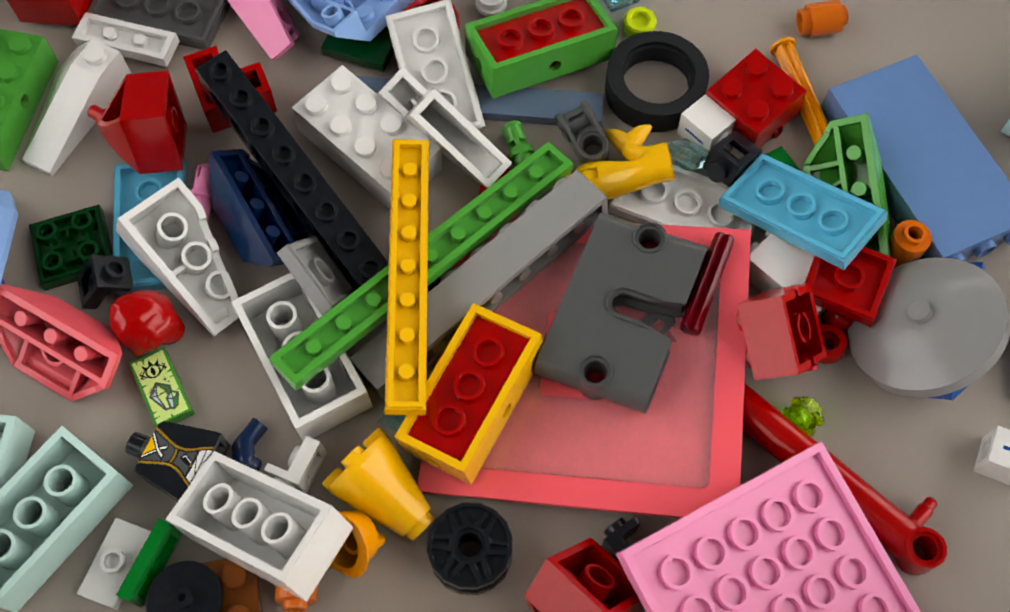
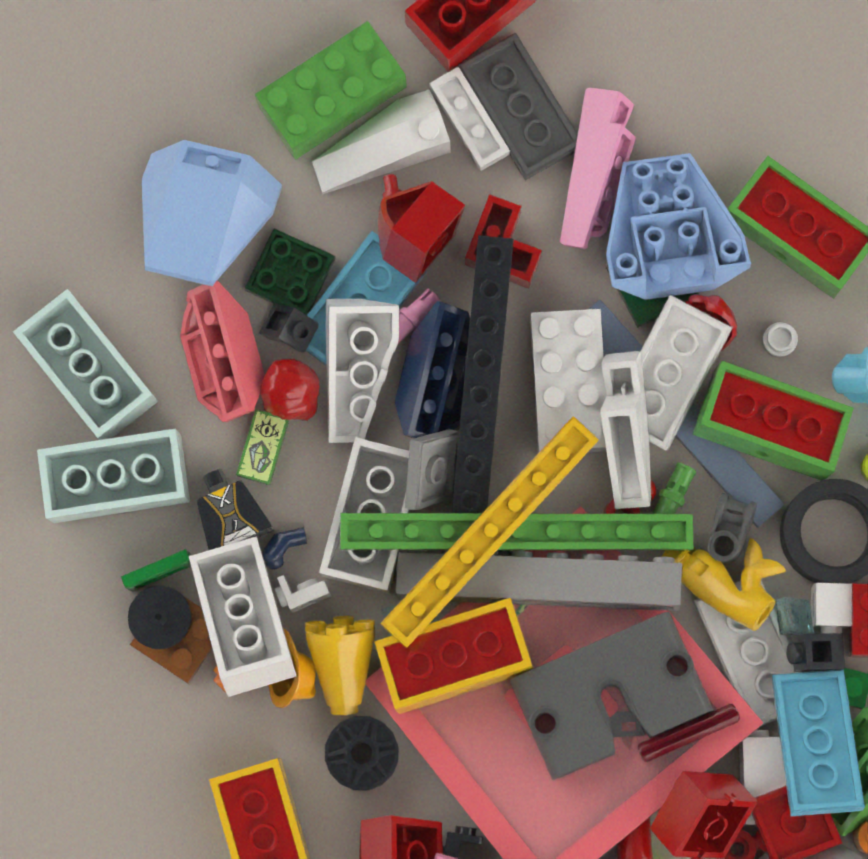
camera: 50 degrees right, 15 degrees up
(113, 563) = (137, 547): white plate -> none

